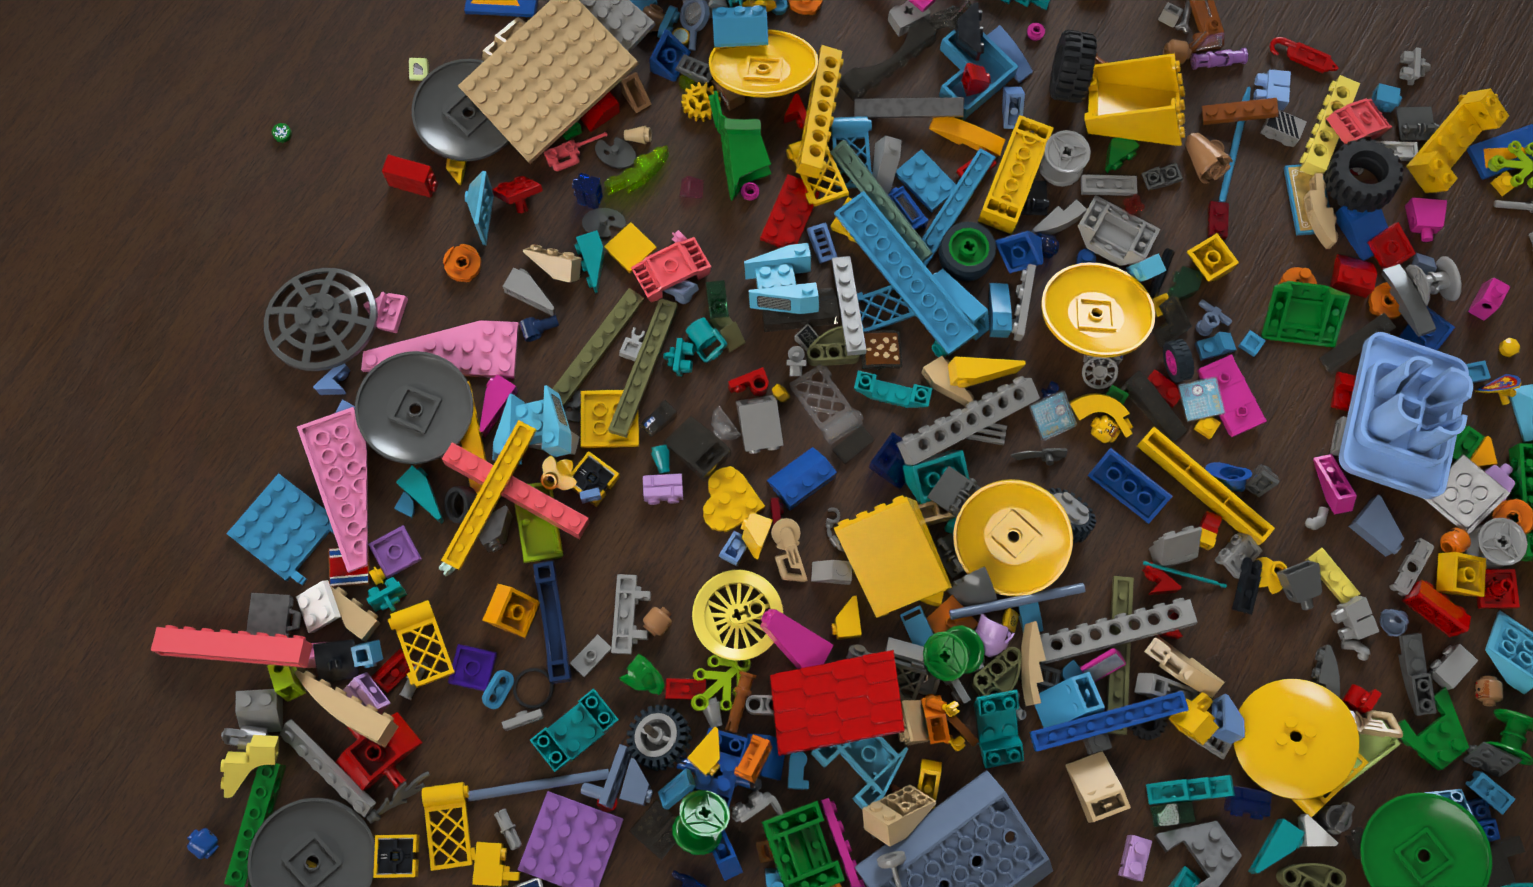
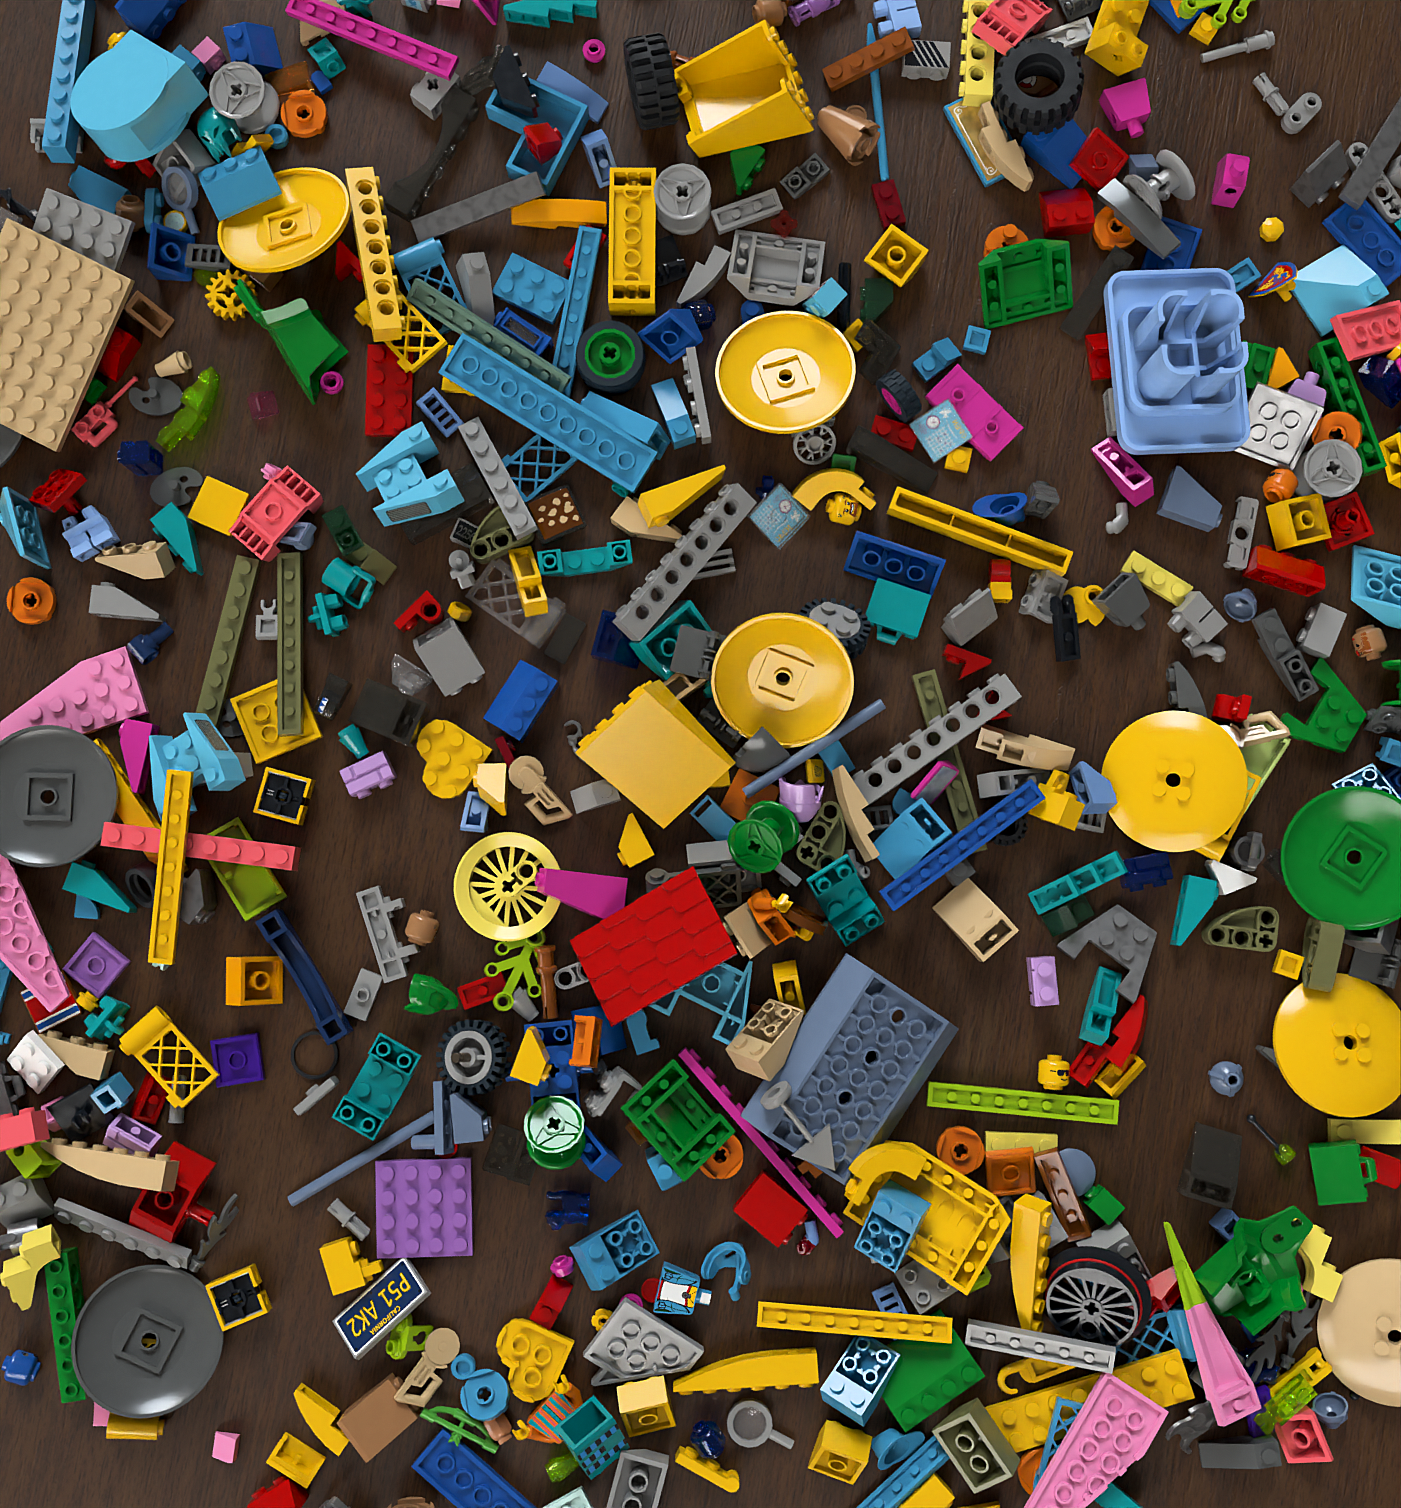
camera: 15 degrees left, 10 degrees up
(442, 798) = (266, 1213): yellow piece -> none
(498, 689) = (276, 1073): dark azure plate -> none
(517, 230) = (89, 535): none -> light blue hips
(560, 472) = (243, 805): yellow plate -> none
(590, 495) = (288, 818): medium blue tile -> none
(677, 789) = (515, 1104): dark azure tile -> none
(842, 390) = (528, 581): none -> yellow slope
(1047, 455) = (789, 564): dark grey piece -> none
(1119, 521) = (896, 610): none -> teal piece
(1184, 574) = (988, 643): teal piece -> none
(1210, 319) = (920, 329): sand blue piece -> none

